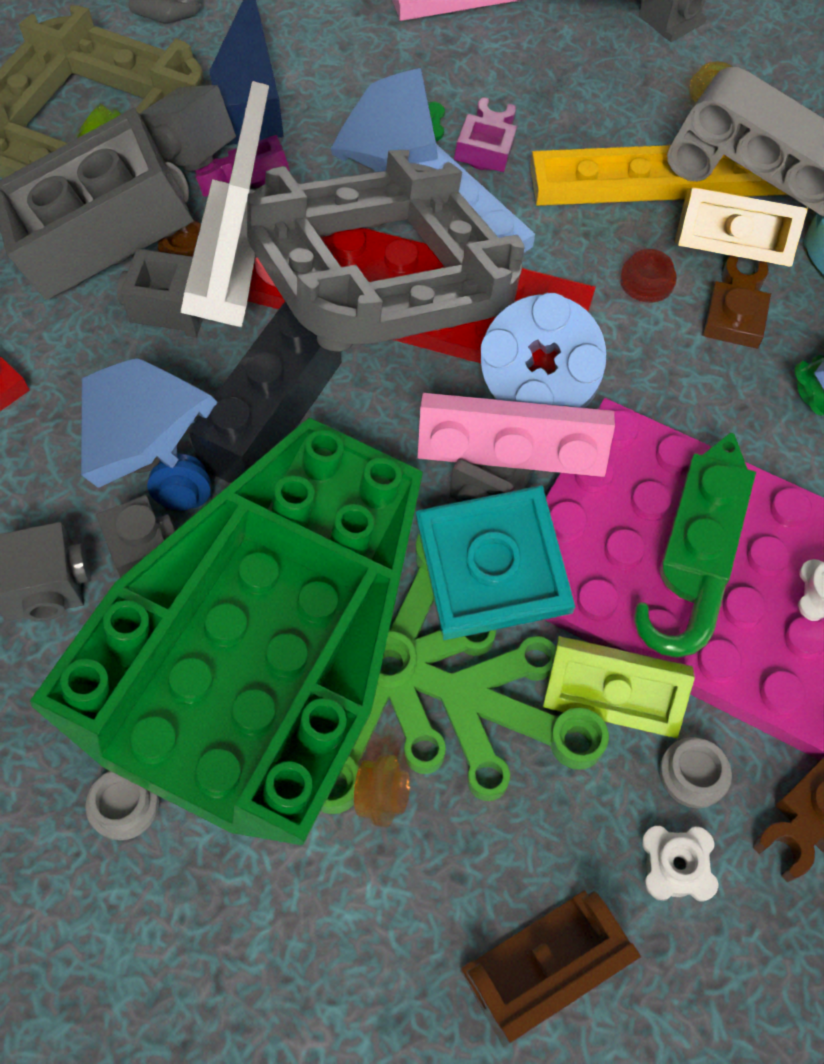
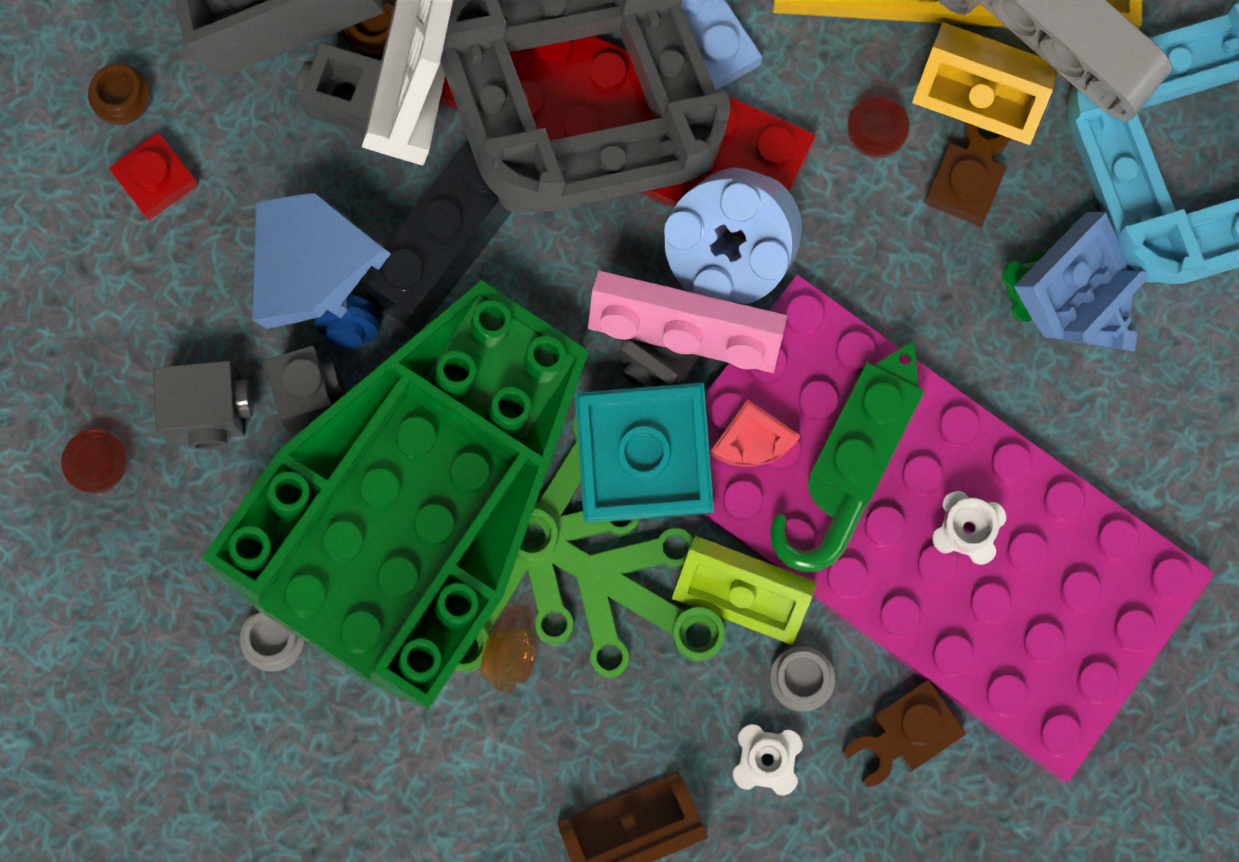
camera: 10 degrees right, 15 degrees up
(599, 537) = (754, 439): none -> coral tile

